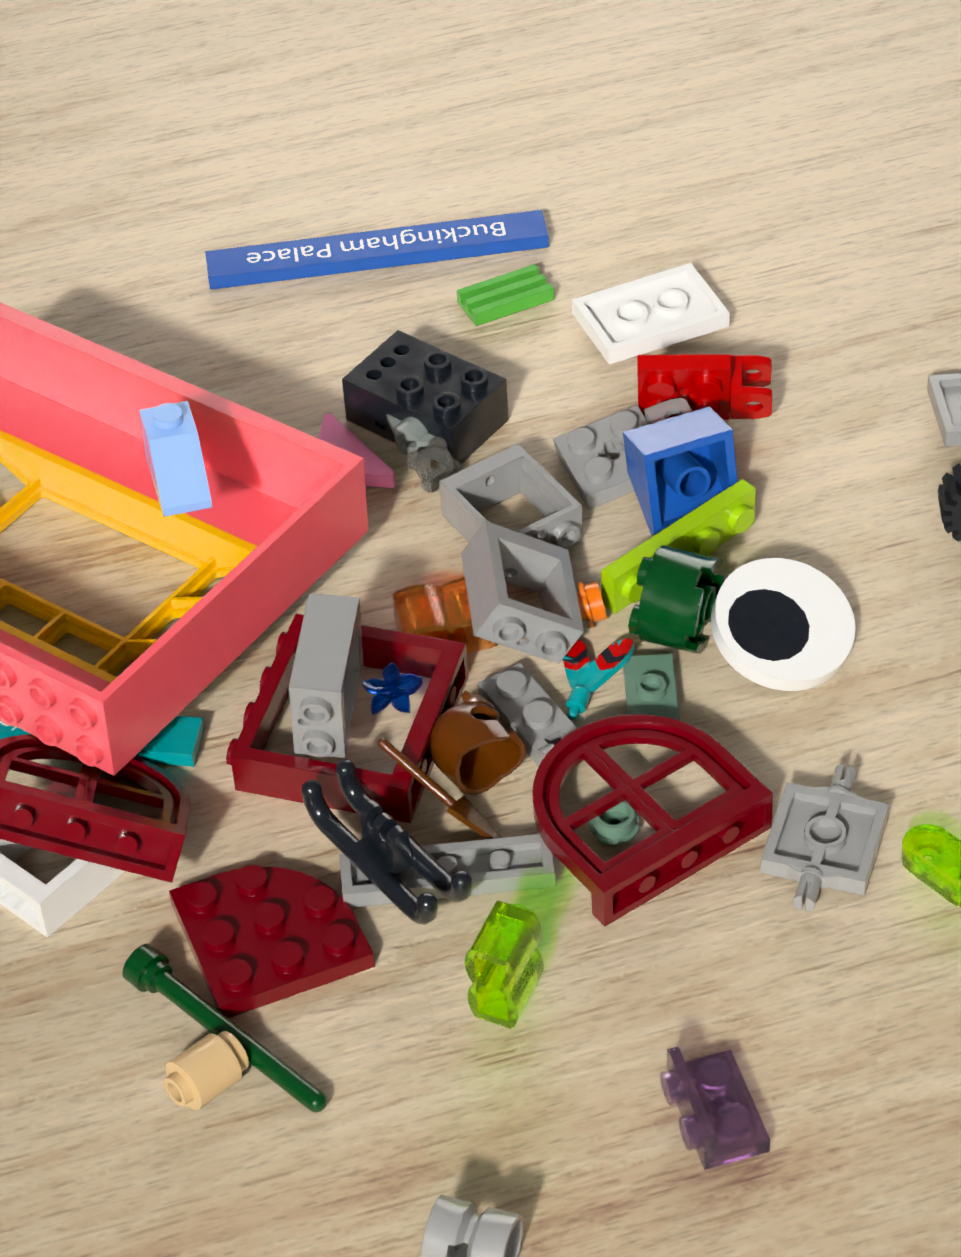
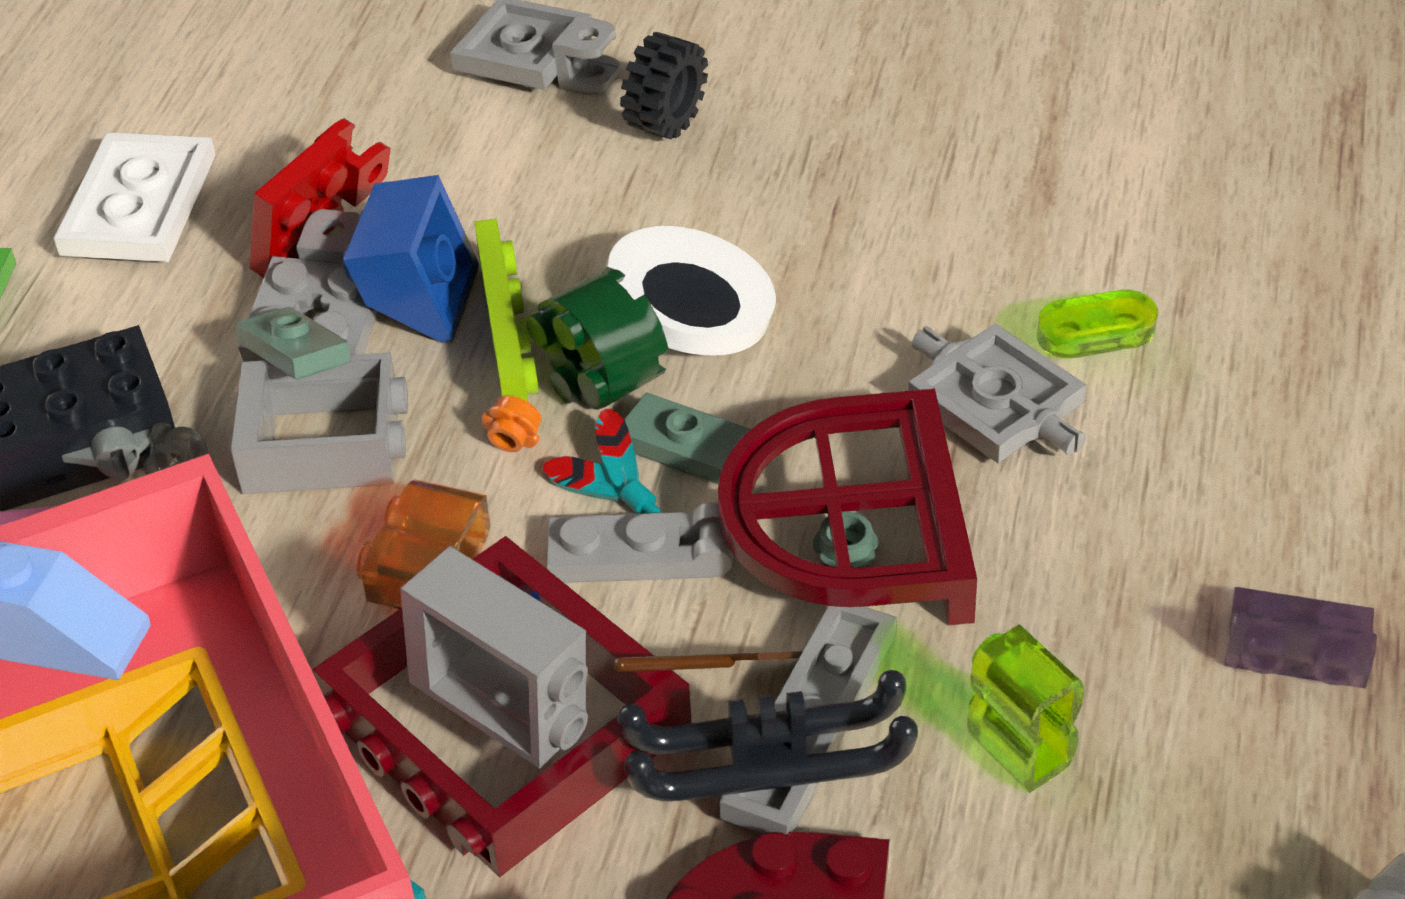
camera: 60 degrees left, 0 degrees up
(473, 745) = (654, 599): reddish brown helmet -> none
(506, 555) = (469, 457): light grey window -> none
(547, 454) = (293, 342): none -> sand green plate

